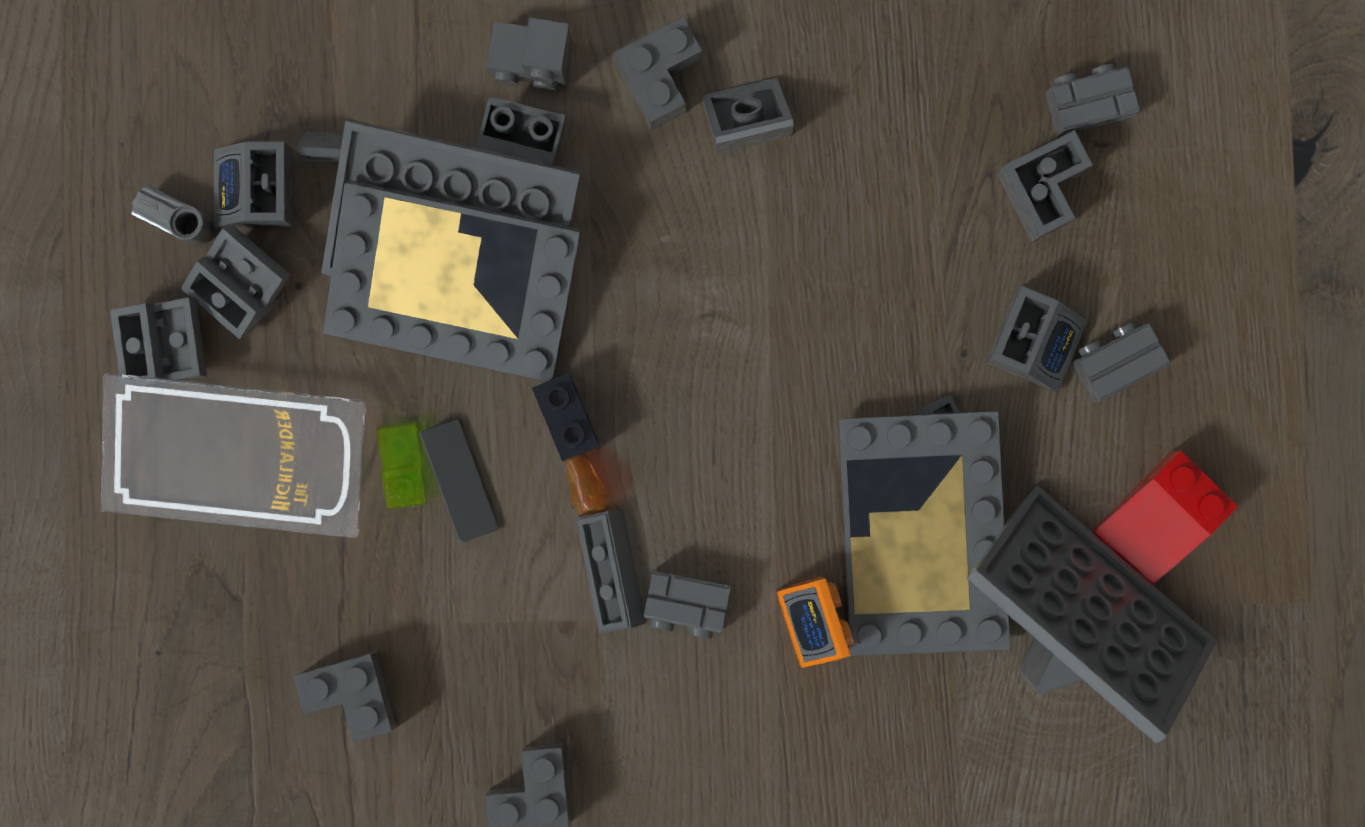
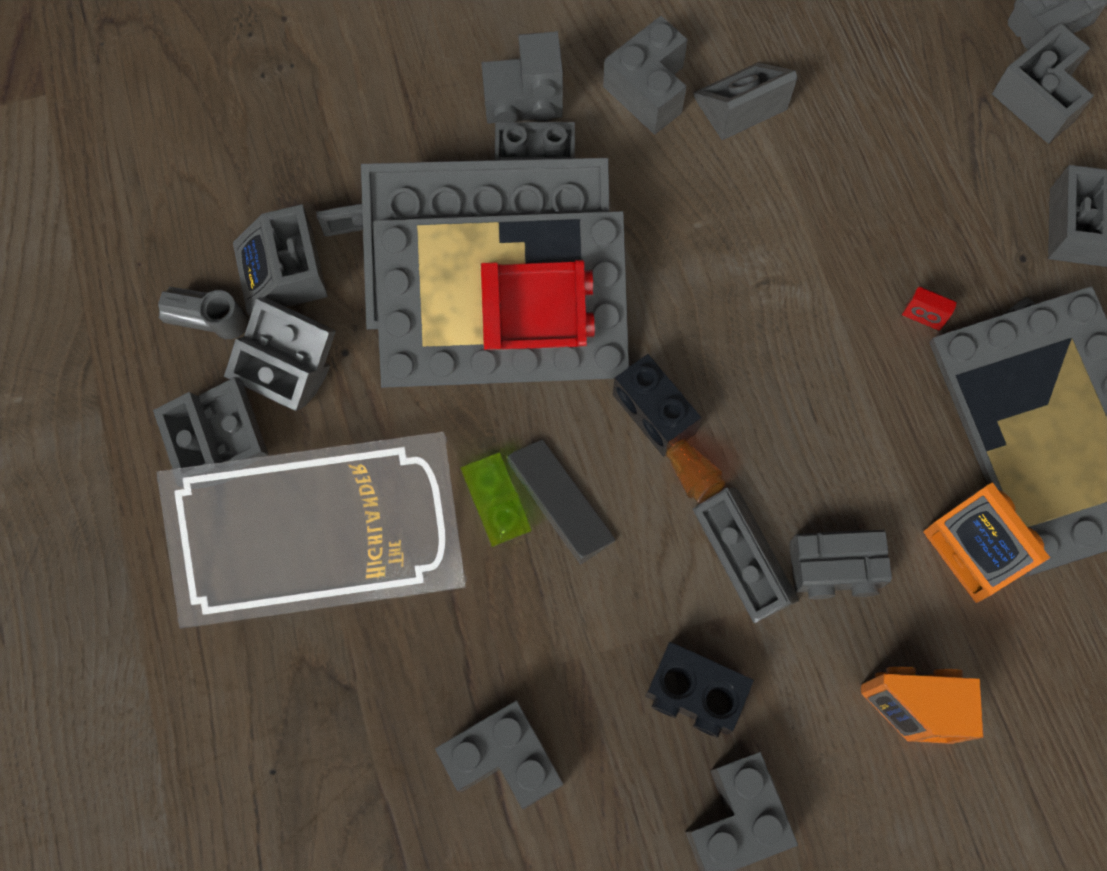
camera: 15 degrees left, 15 degrees down
(476, 300) = (536, 305): none -> red panel
(536, 671) = (701, 677): none -> black brick
(714, 747) = (928, 706): none -> orange slope
(849, 386) = (929, 308): none -> red tile

